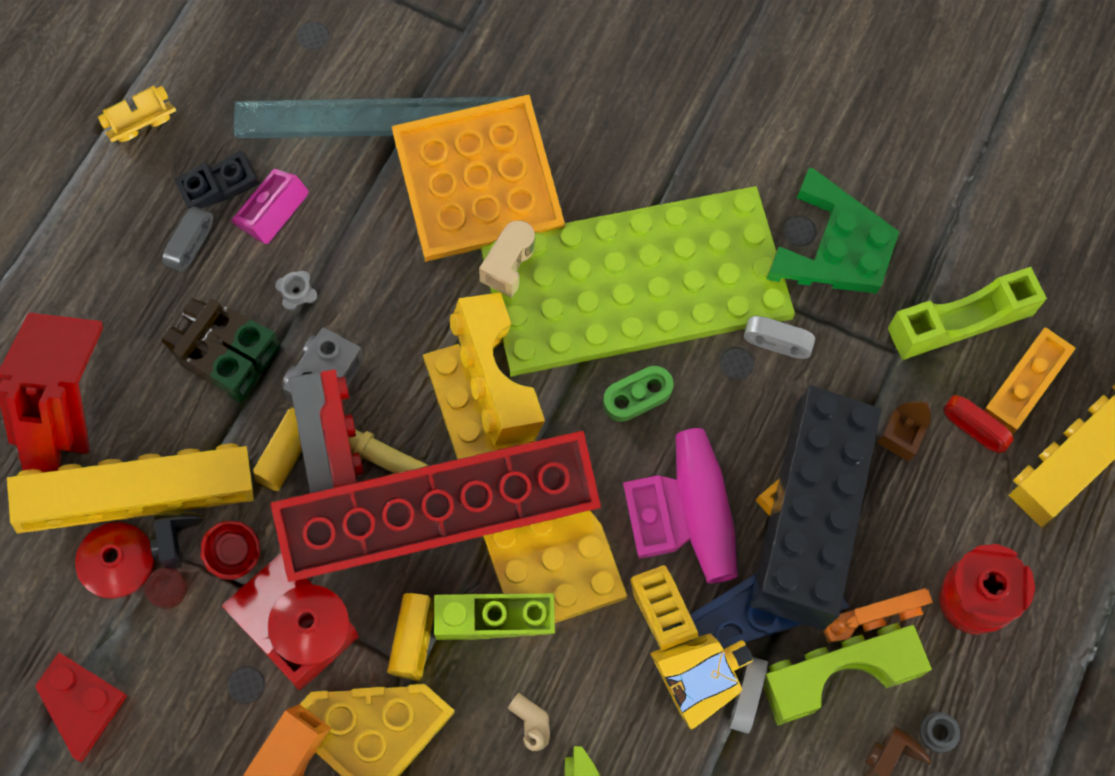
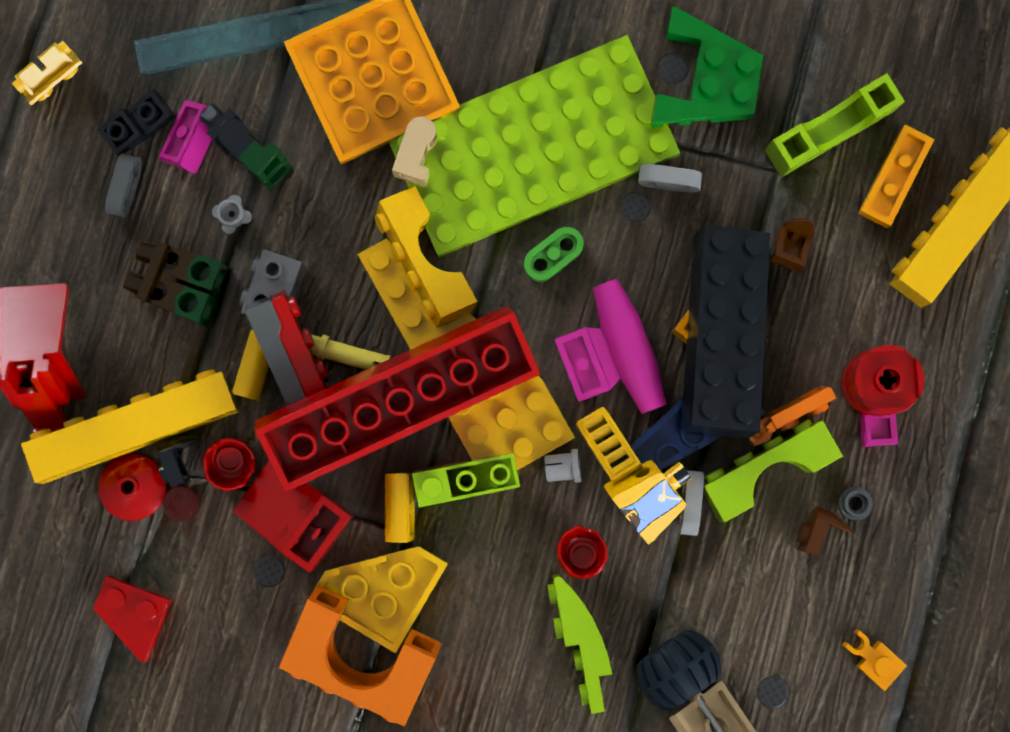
camera: 10 degrees left, 15 degrees up
(314, 643) = (328, 517): red dish -> none
(339, 238) = (234, 138): none -> hips
(535, 722) = (517, 559): tan arm -> none
(608, 625) = (563, 467): none -> light grey bush
(611, 726) = (581, 552): none -> red hair
(977, 653) = (878, 430): none -> dark pink tile
(978, 424) = (855, 226): red tile -> none

